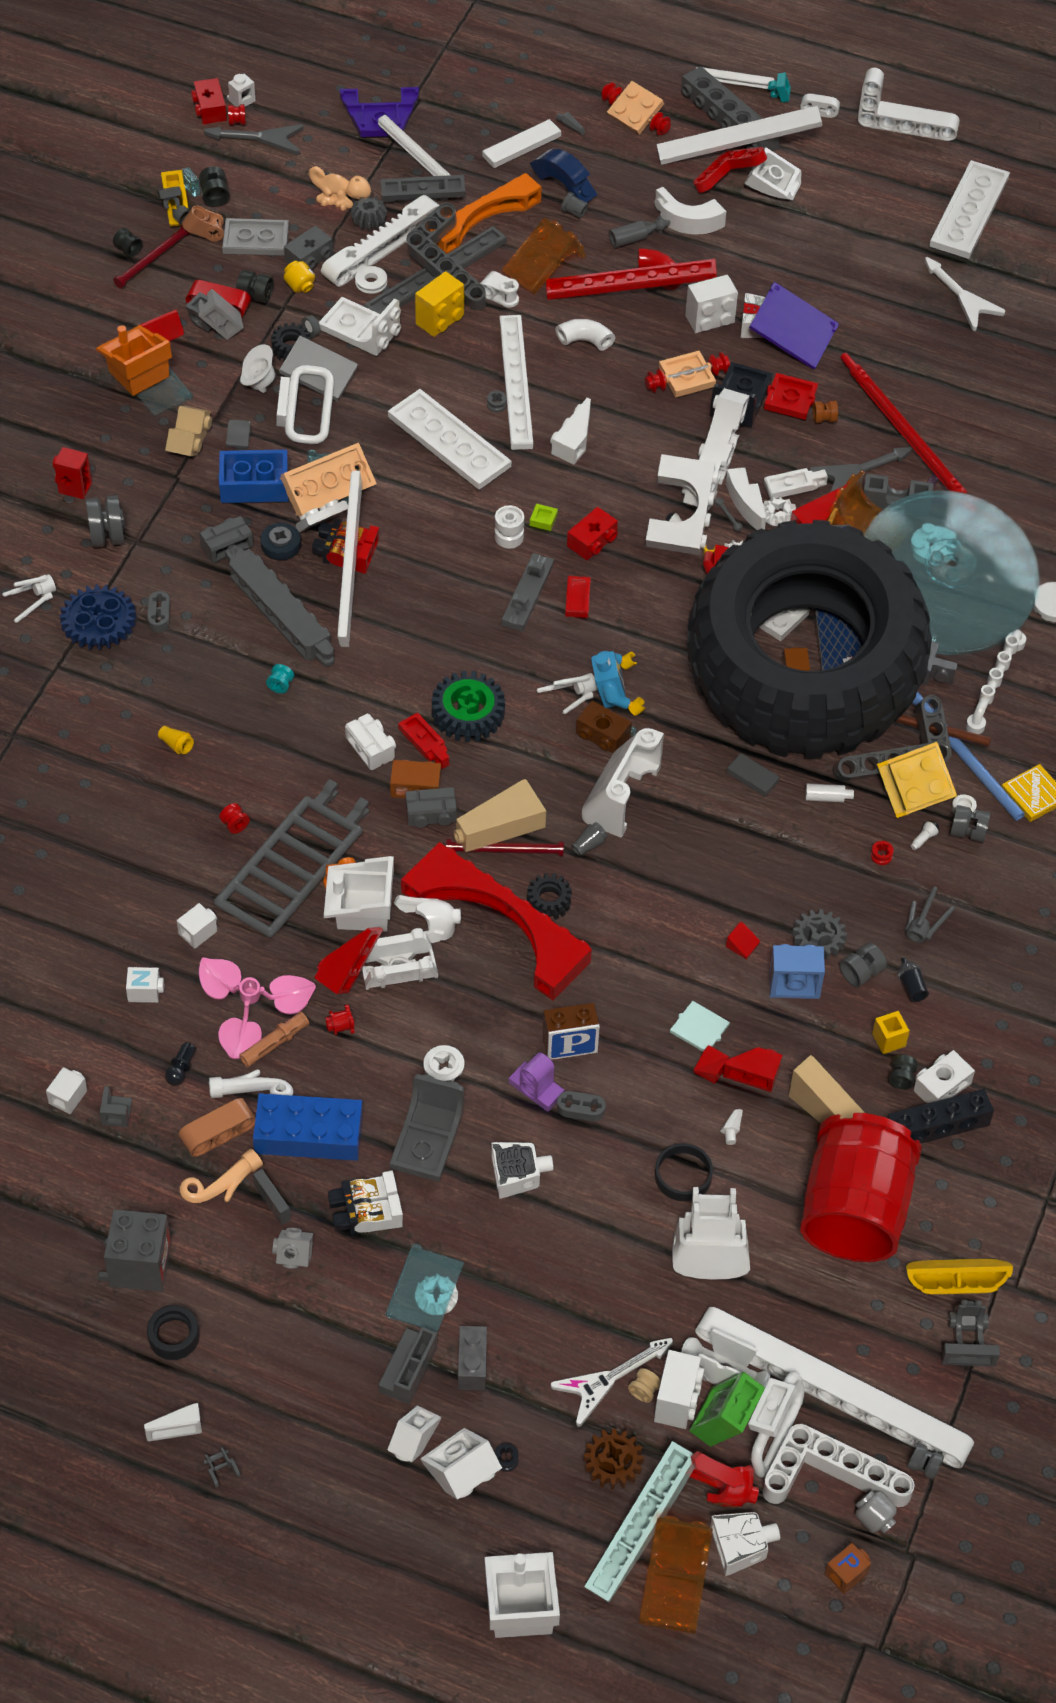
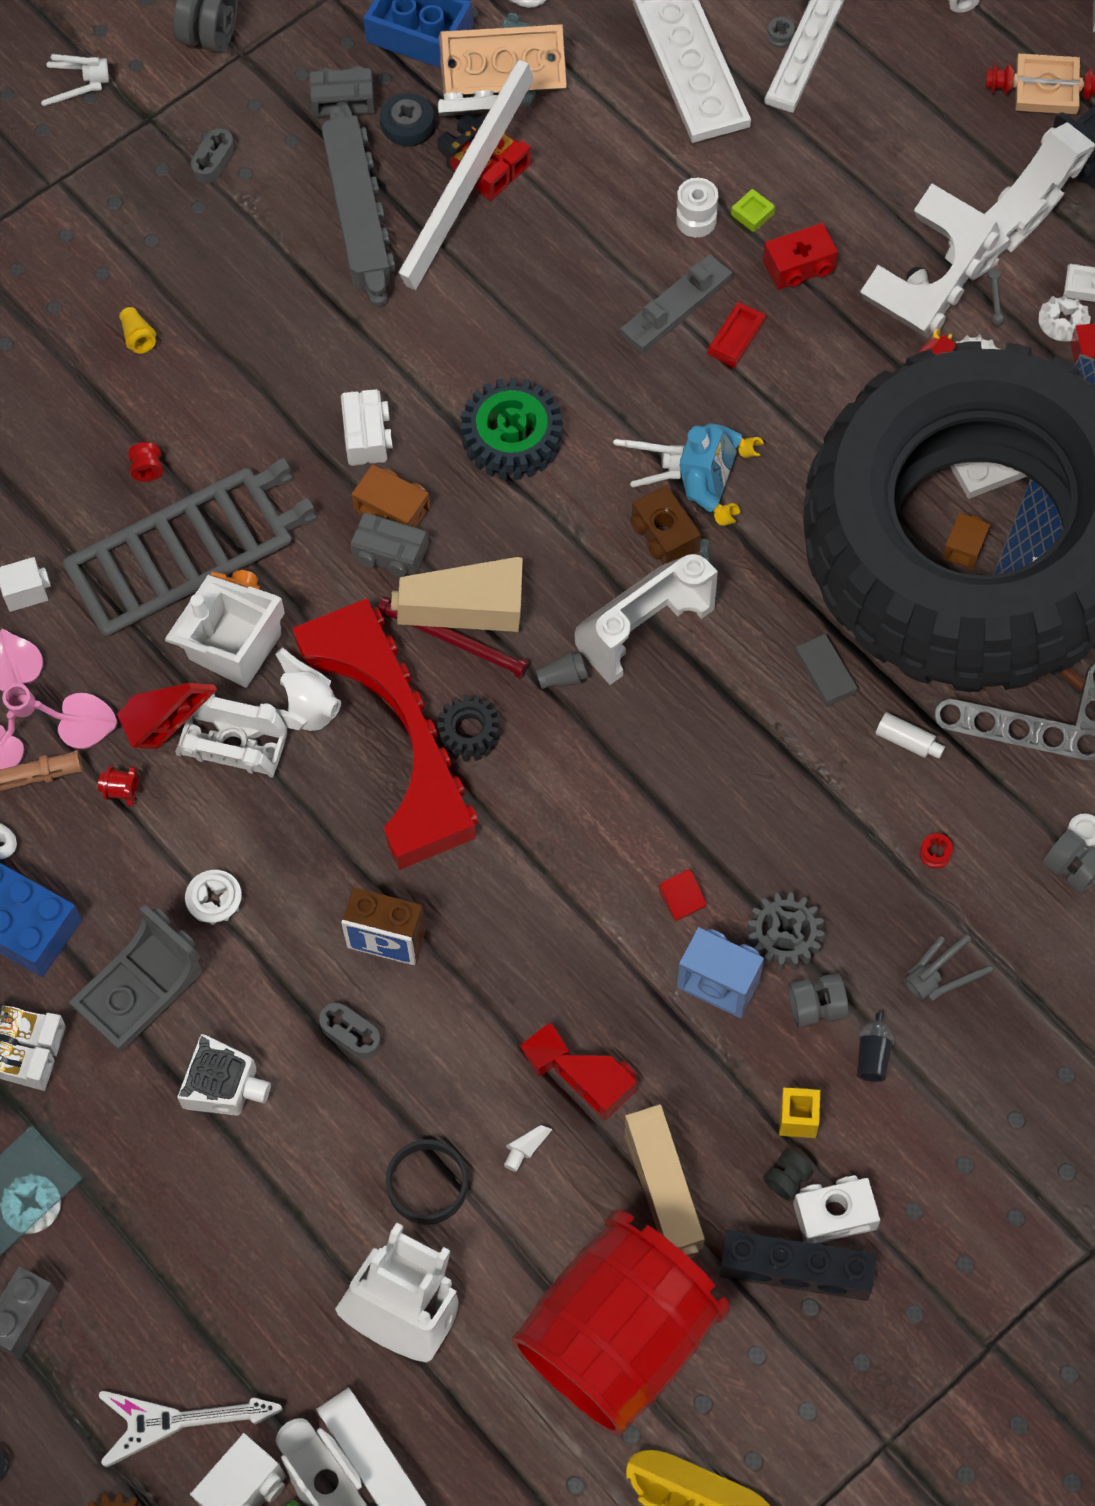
camera: 30 degrees right, 10 degrees up
(97, 617) = (135, 135): dark blue gear -> none
(280, 678) = (303, 300): teal wheel -> none
(425, 739) = (434, 451): red hinge -> none
(537, 1081) = (310, 976): medium lavender tile -> none
(571, 439) = (850, 115): white slope -> none
(644, 1385) = (207, 1453): tan wheel -> none
(699, 1026) = (562, 989): light aqua piece -> none
(746, 497) = (1029, 283): white slope -> none
(917, 779) = (1036, 770): yellow piece -> none
(929, 830) = (1018, 845): white piece -> none

